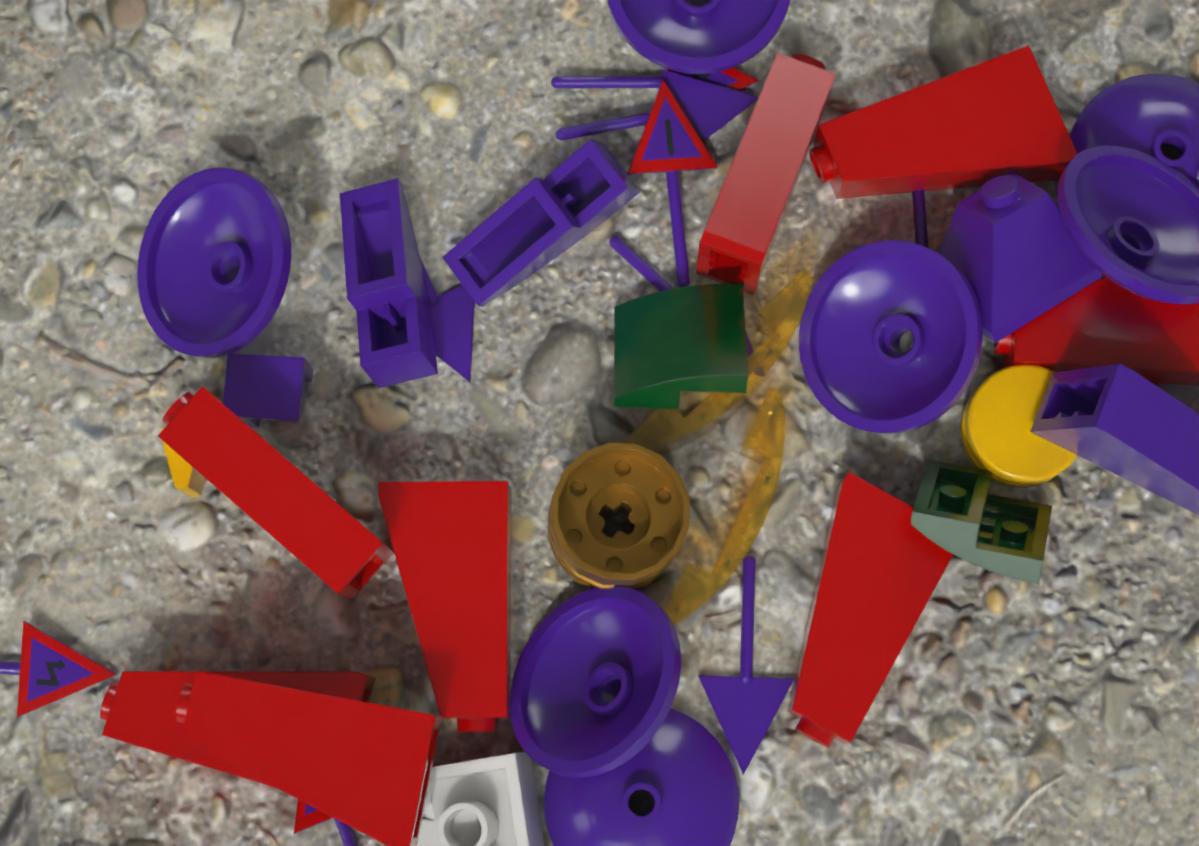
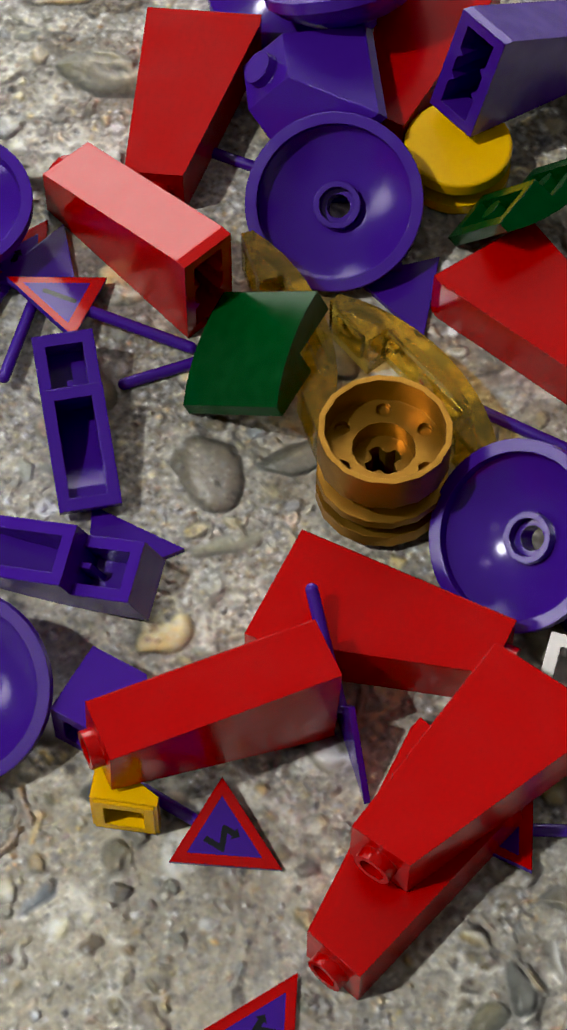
camera: 70 degrees left, 20 degrees down
(210, 550) = (219, 833): none -> piece
(368, 589) = (346, 713): none -> dark purple piece
(849, 450) = (407, 291): none -> dark purple piece

